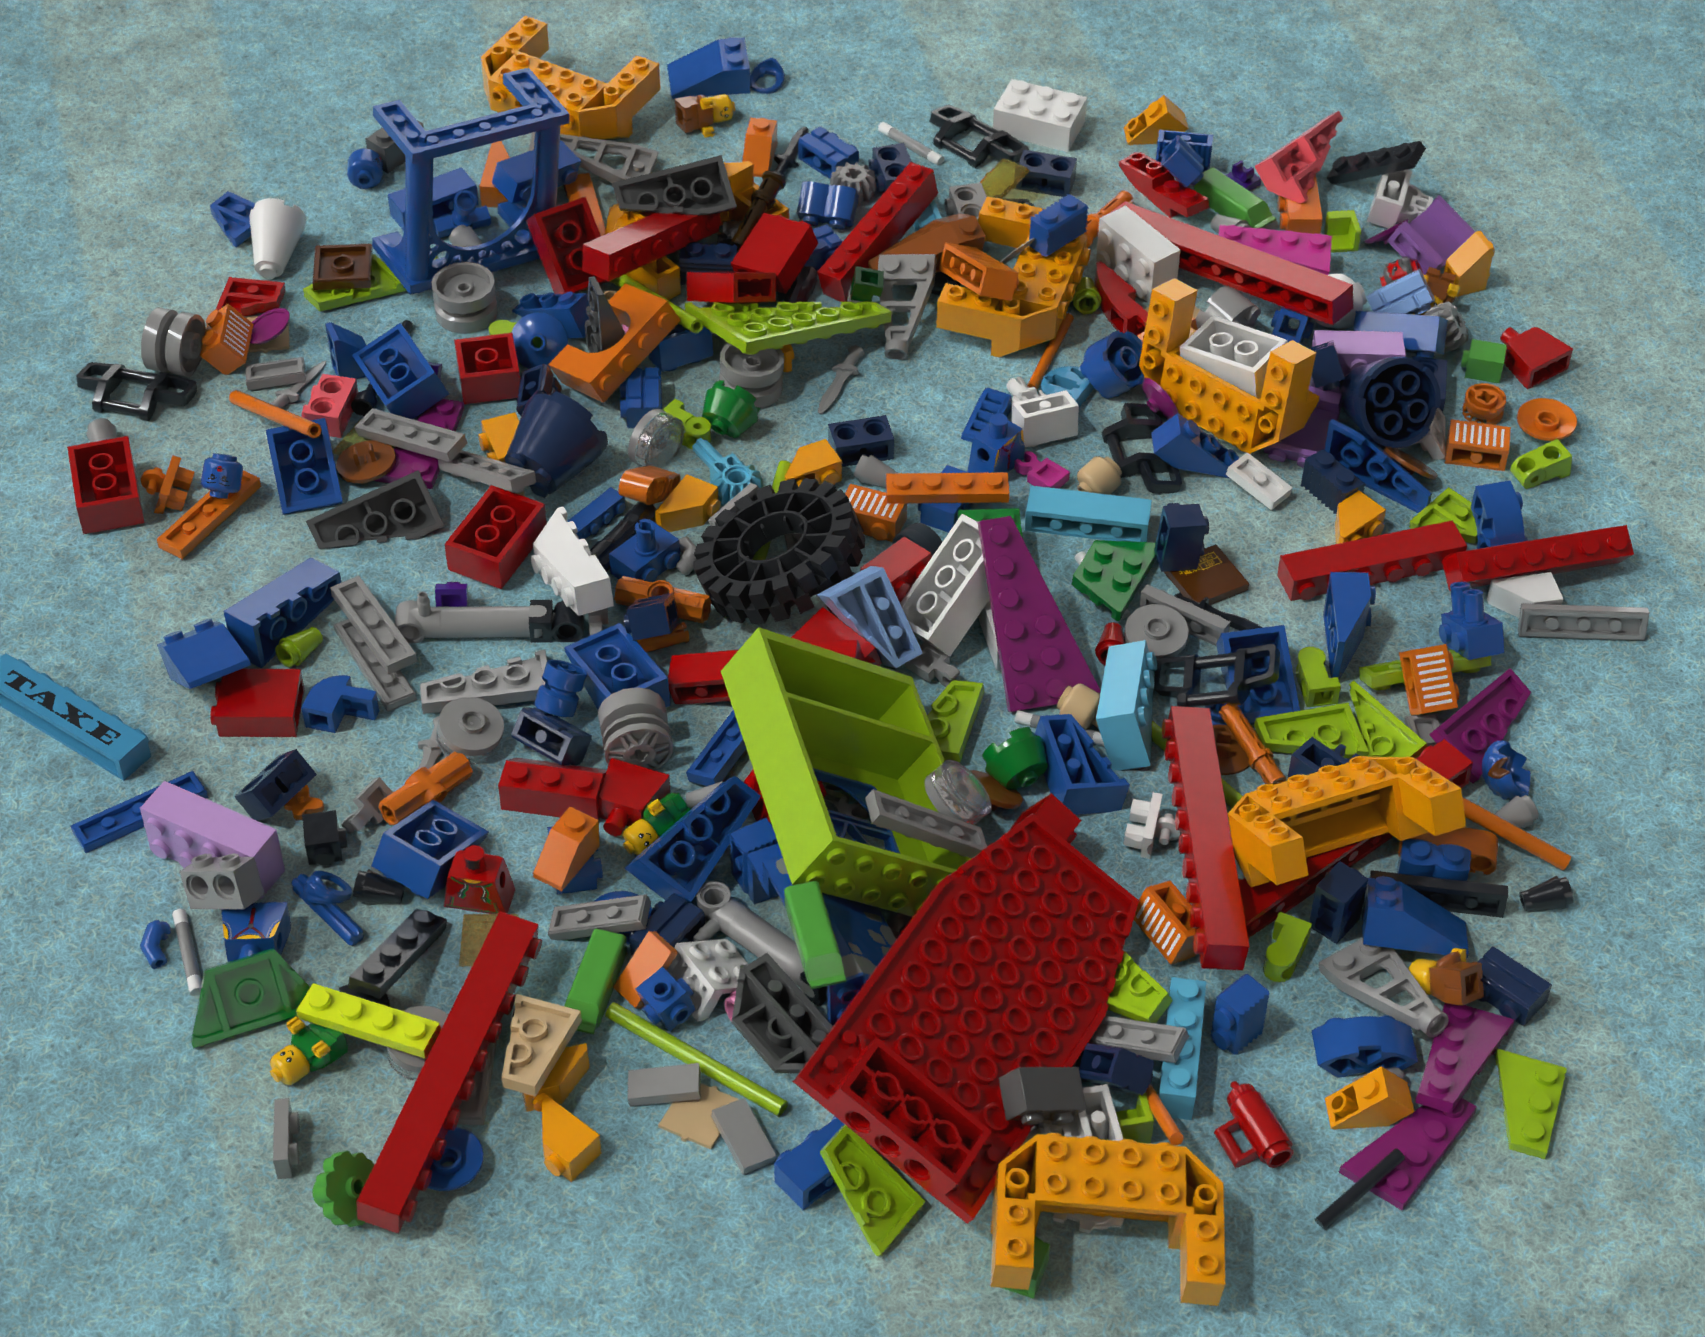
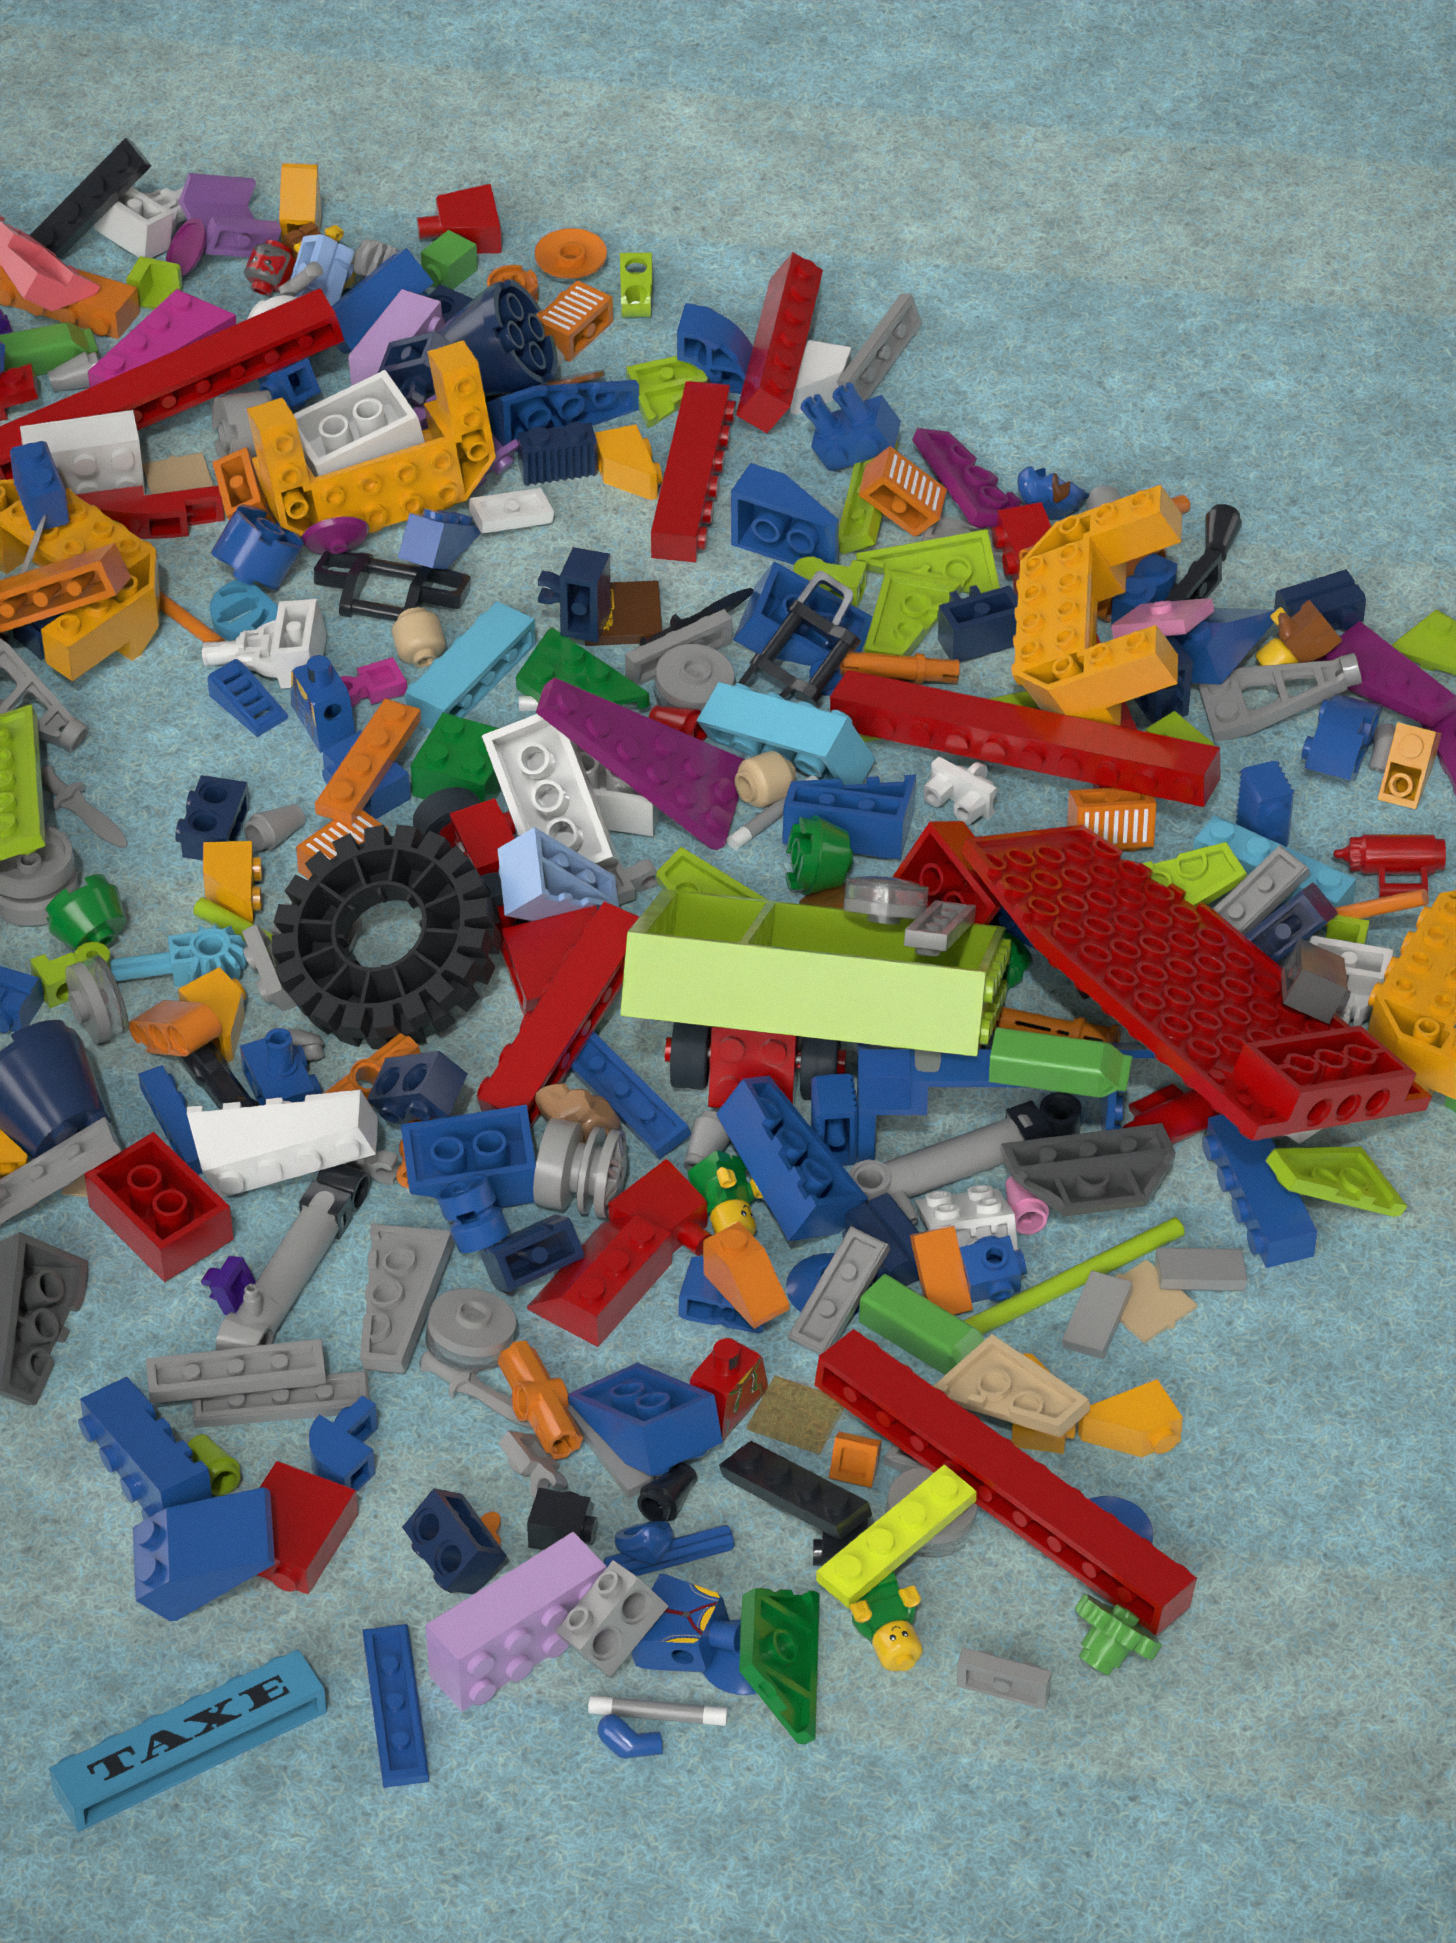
camera: 65 degrees left, 0 degrees up
(451, 981) = (855, 1459): none -> orange tile
(689, 719) = (577, 1106): none -> medium nougat head
(1371, 281) = (301, 280): none -> light grey sword
(1382, 871) = (1169, 616): none -> bright pink plate

